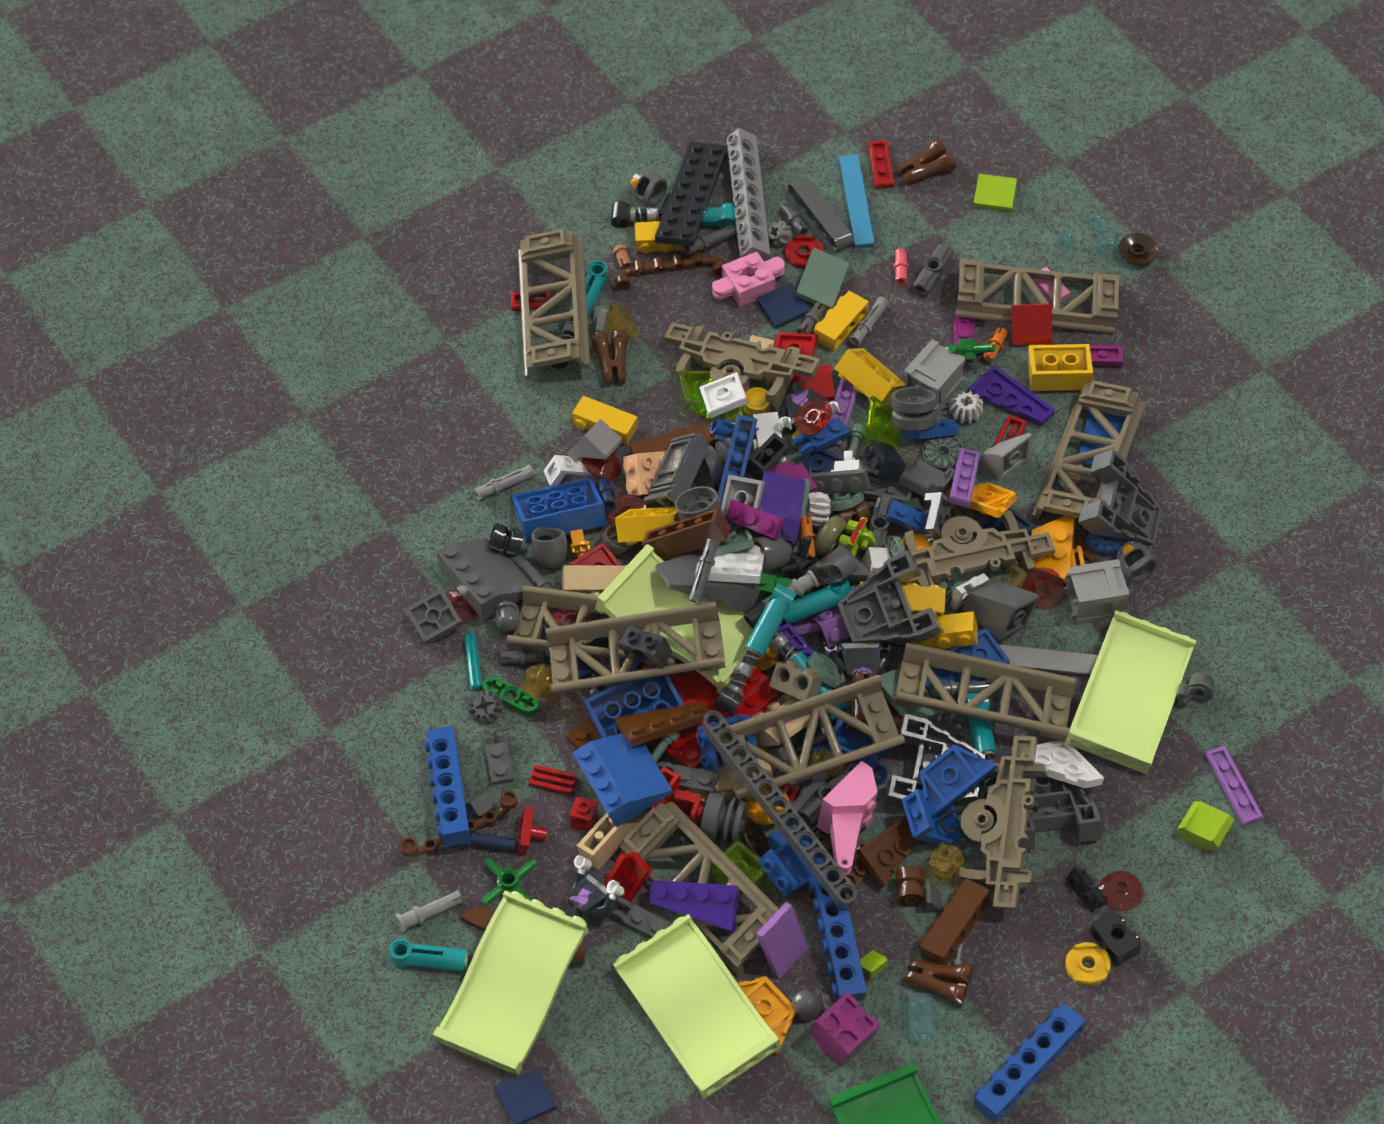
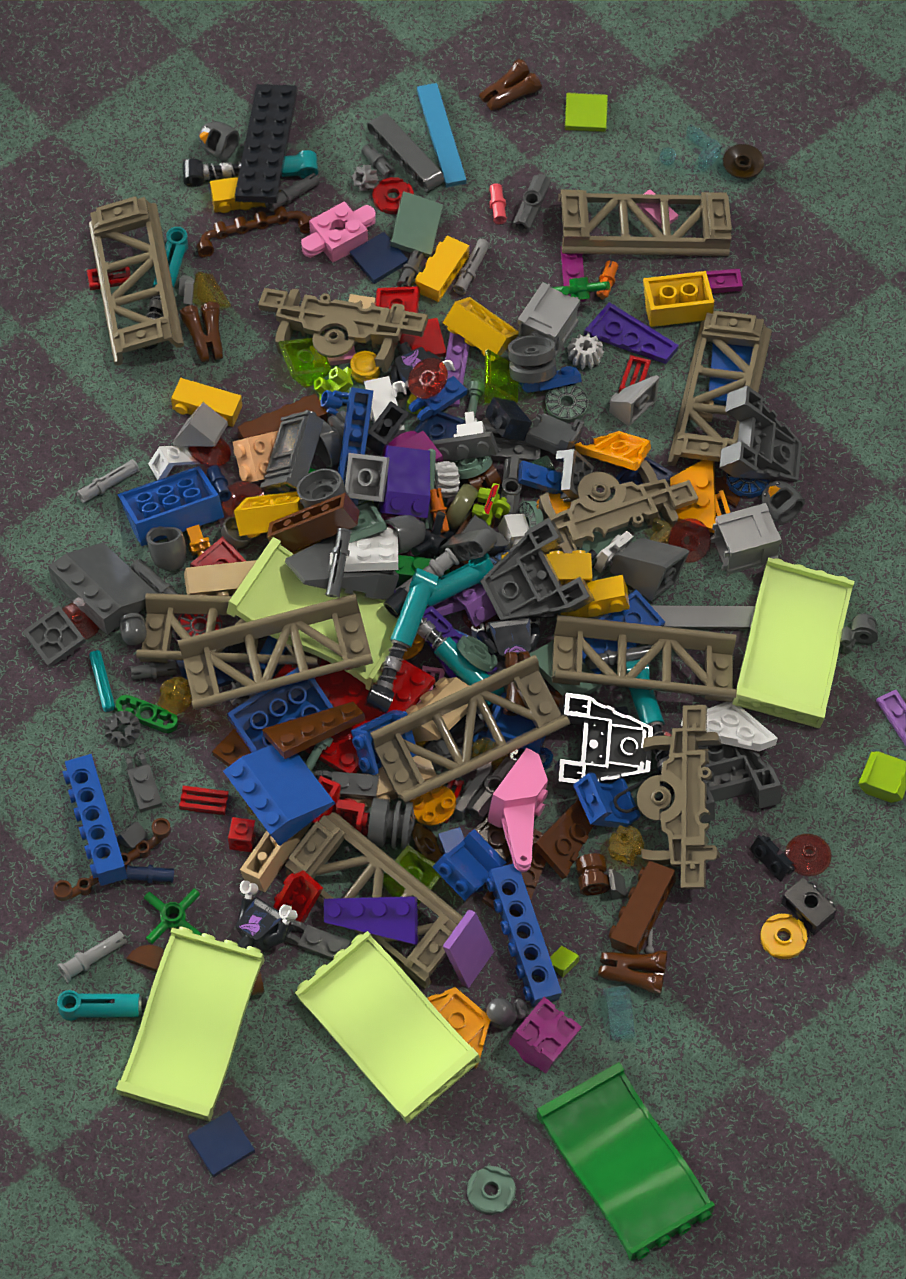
camera: 10 degrees left, 5 degrees up
(505, 539) = (119, 544): black wheel -> none
(528, 832) = (185, 859): red tile -> none
(620, 253) = (198, 215): nougat pin -> none
(645, 647) = (288, 651): black brick -> none
(723, 395) = (330, 364): white tile -> none
(748, 194) = (326, 138): light grey brick -> none
(754, 519) = (382, 498): magenta plate -> none
(780, 819) = (453, 820): dark grey beam -> none
(795, 684) = (447, 674): dark tan brick -> none
(881, 164) = (462, 92): red tile -> none
(952, 776) = (623, 754): blue wing -> none
(964, 477) = (593, 429): medium lavender tile -> none
(996, 1106) = (708, 1097): blue brick -> none
(1031, 323) = (643, 254): red tile -> none

